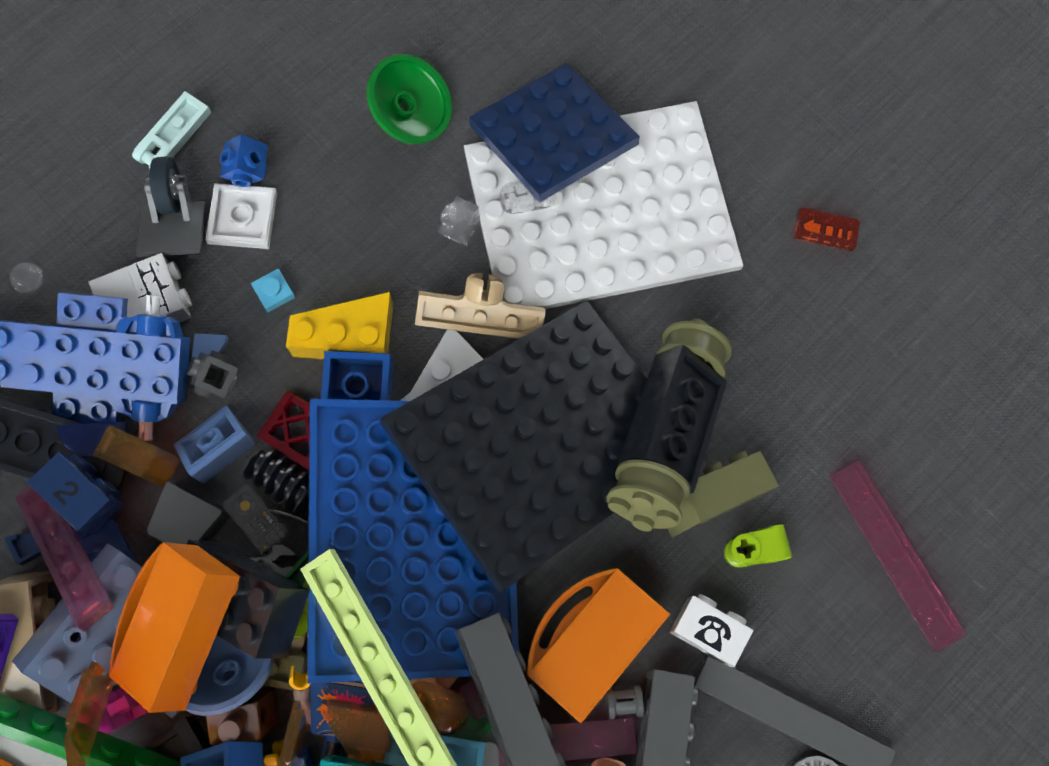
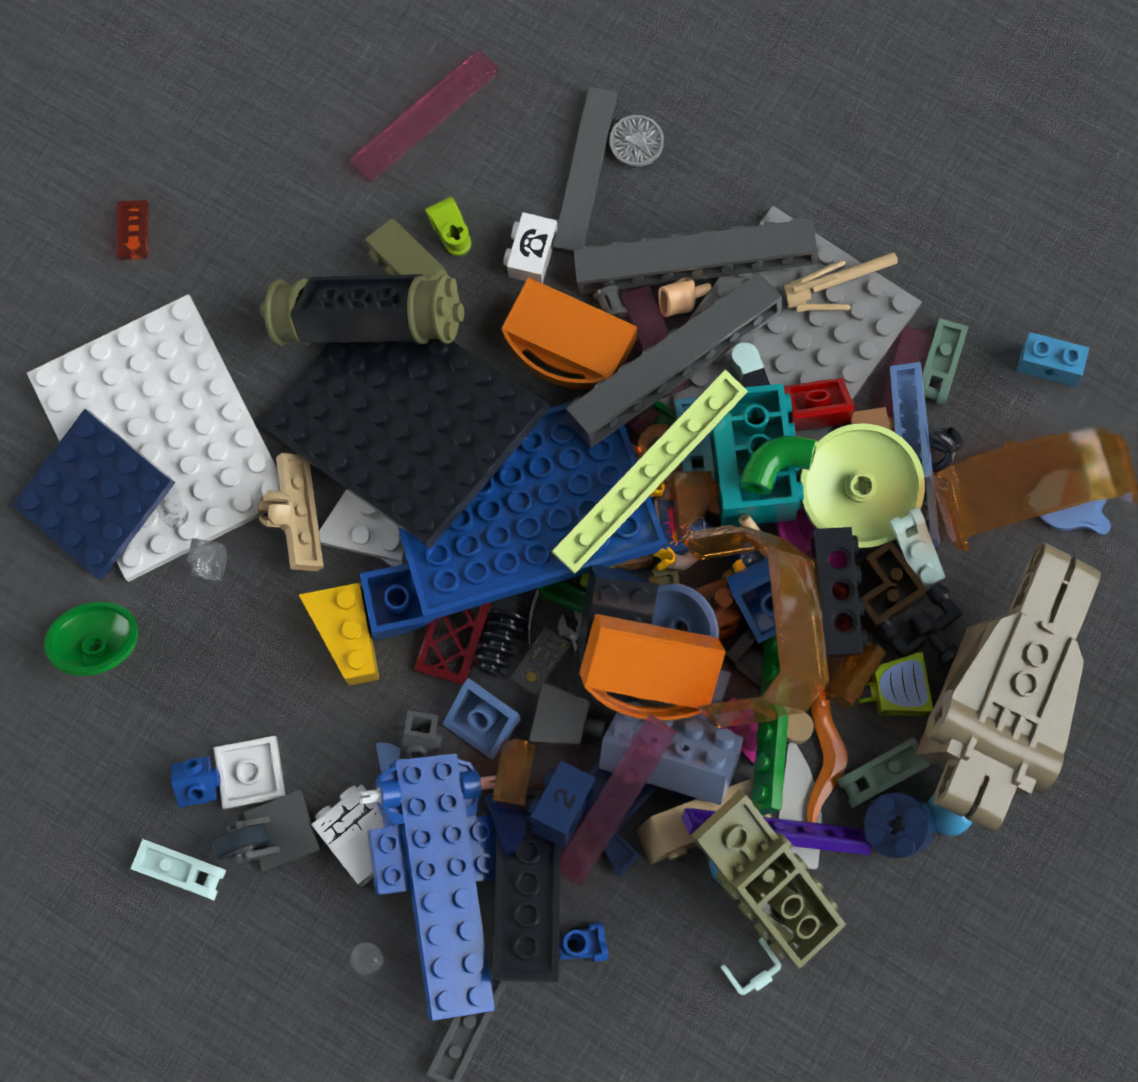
camera: 95 degrees left, 0 degrees up
(273, 290) = (319, 716): medium azure plate -> none

